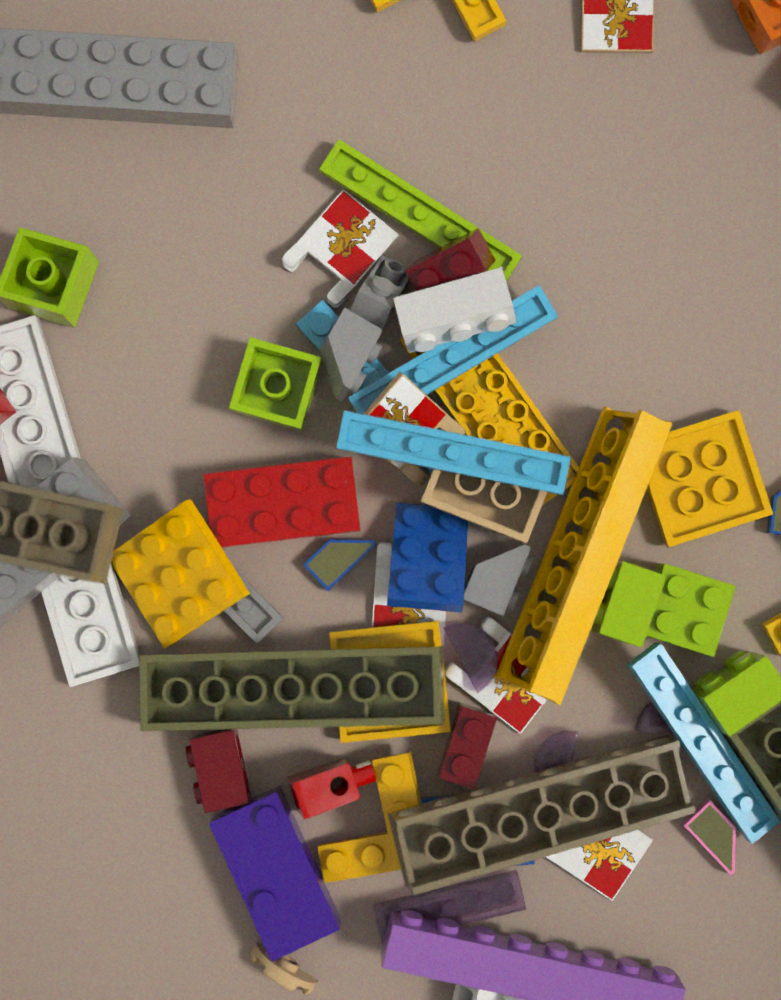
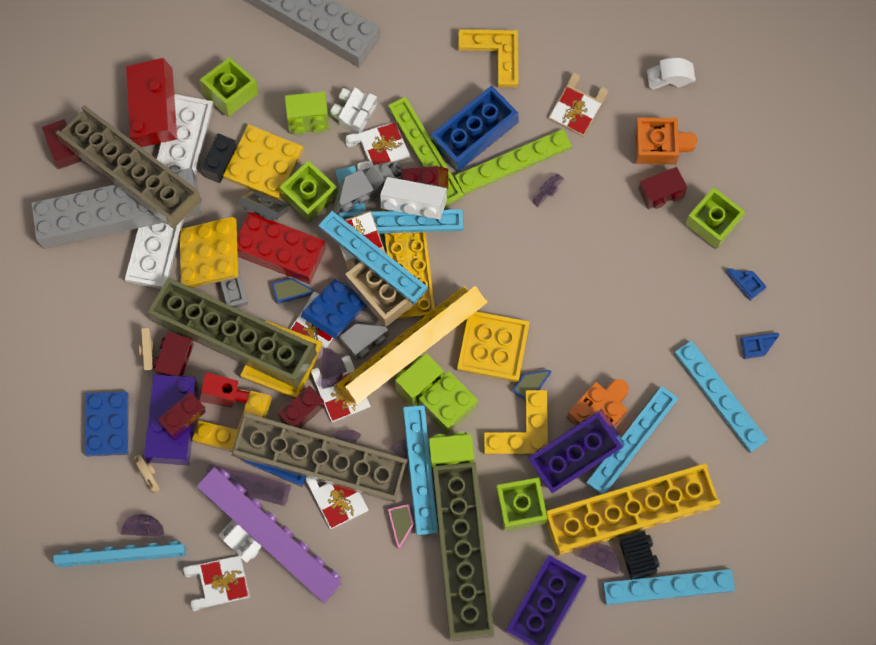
camera: 30 degrees right, 15 degrees down
(101, 405) = (218, 158): none -> black brick
(173, 371) = (263, 161): none -> yellow plate
(173, 783) = (146, 349): none -> tan plate
(177, 927) = (106, 424): none -> blue plate
(200, 254) = (307, 113): none -> lime brick
(219, 447) = (267, 206): none -> dark grey plate
(273, 203) = (356, 110): none -> white hips
(297, 875) = (182, 415): none -> dark red brick
(480, 133) = (475, 128): none -> blue brick
(567, 155) = (513, 161): none -> lime plate
(649, 172) = (549, 188): none -> clear purple plate

